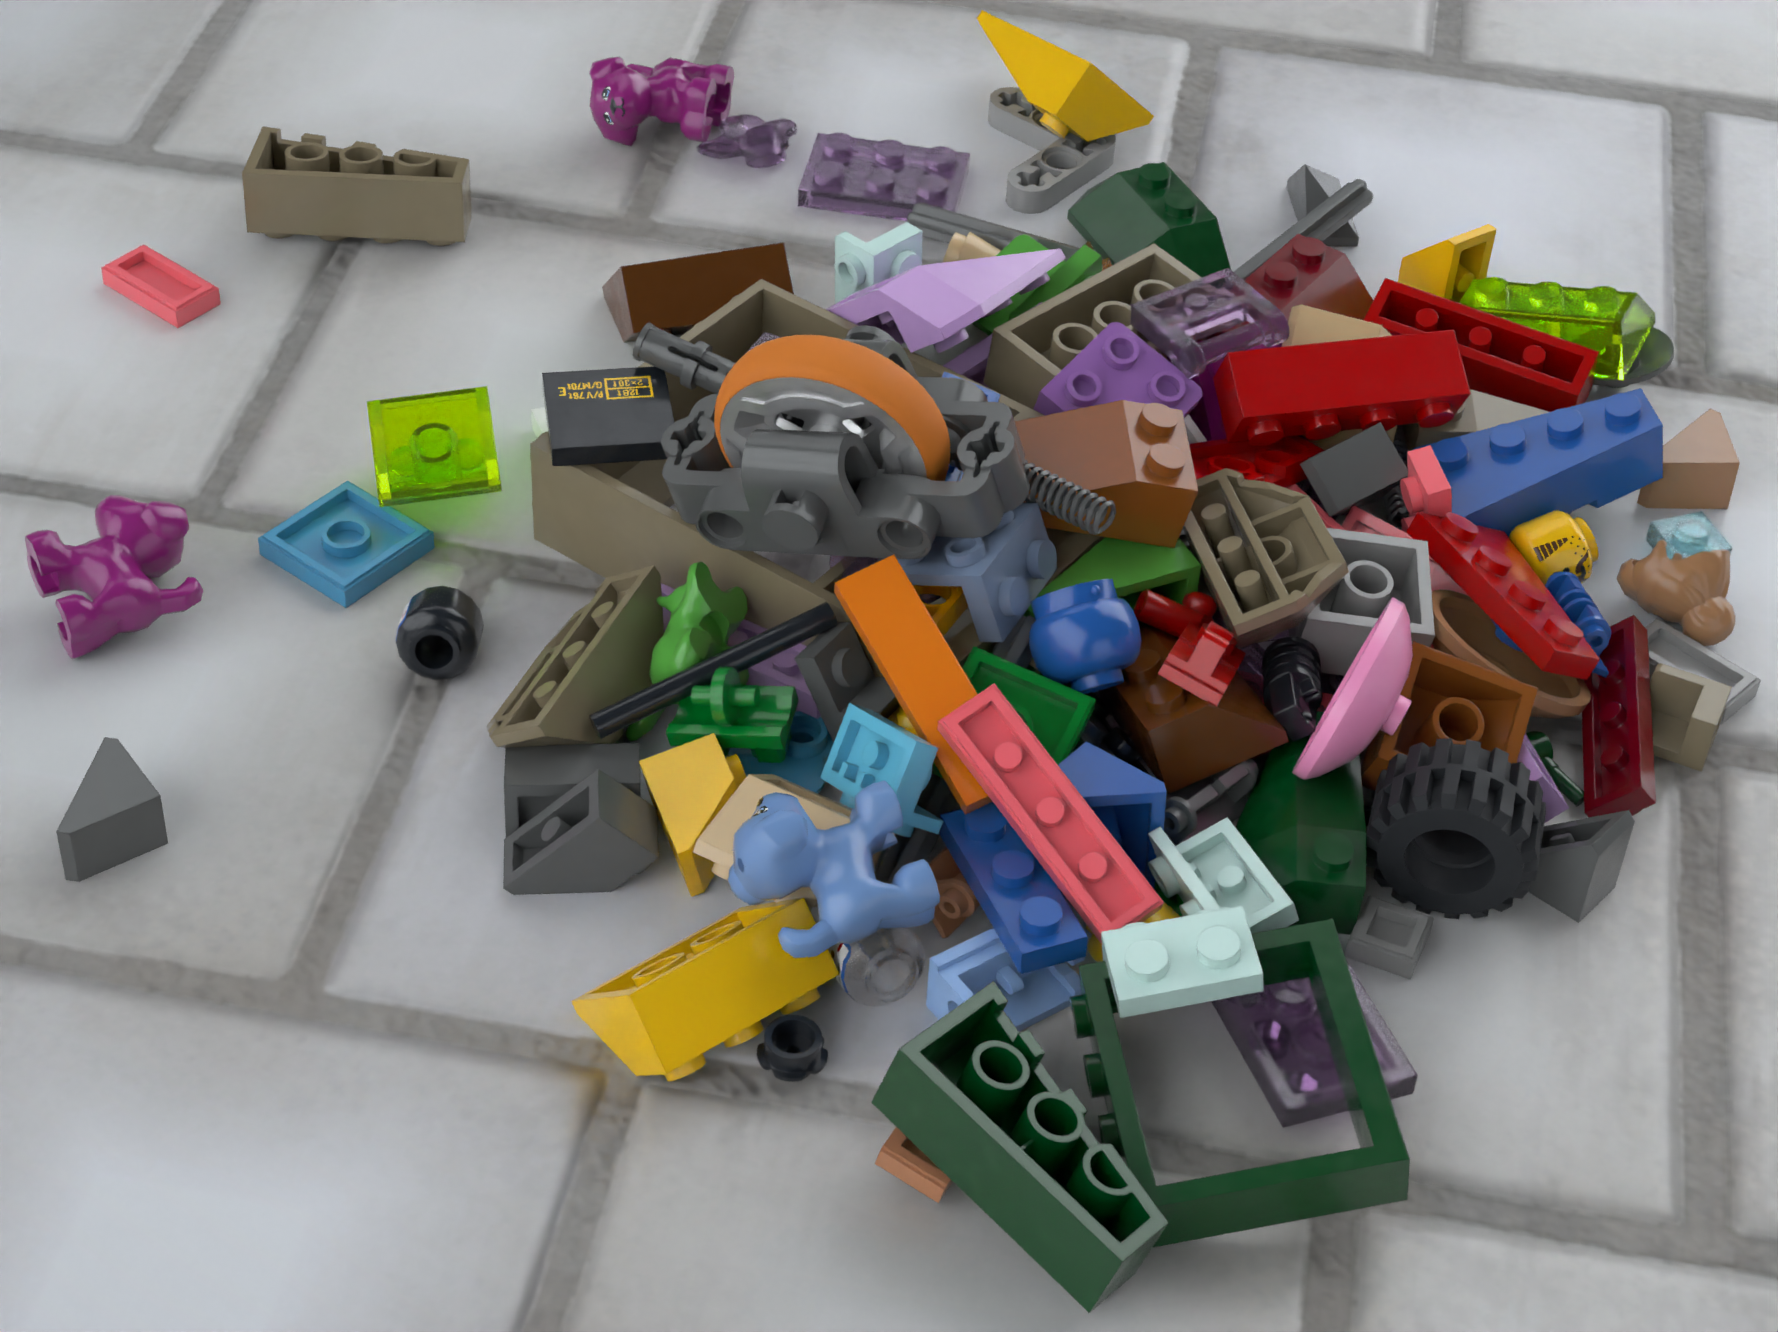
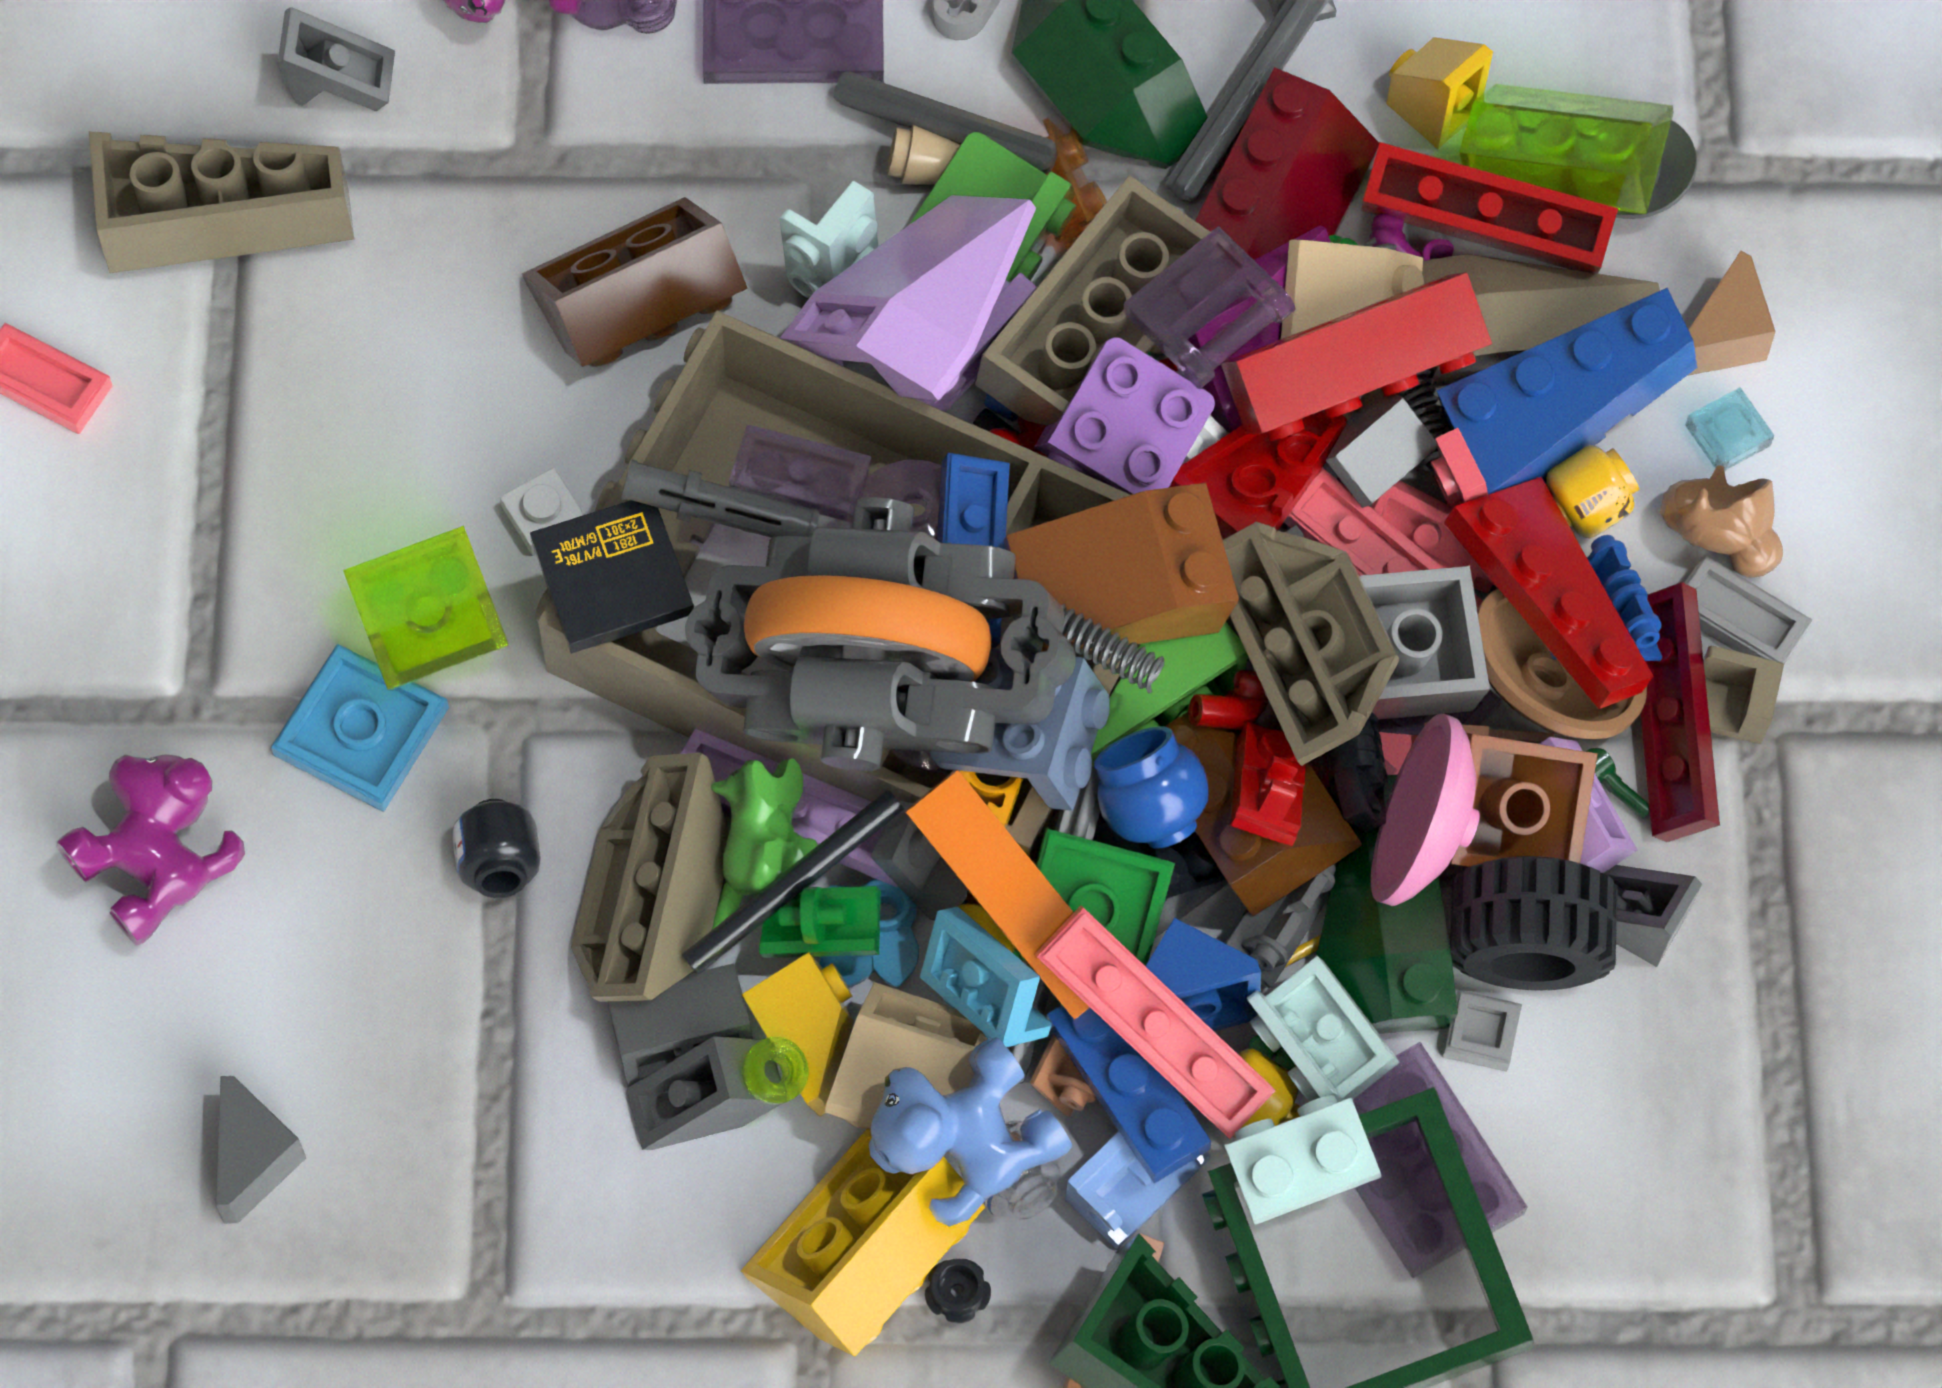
camera: 10 degrees left, 25 degrees up
(475, 121) = (331, 59): none -> dark grey slope
(660, 797) = (793, 1066): none -> clear neon green plate

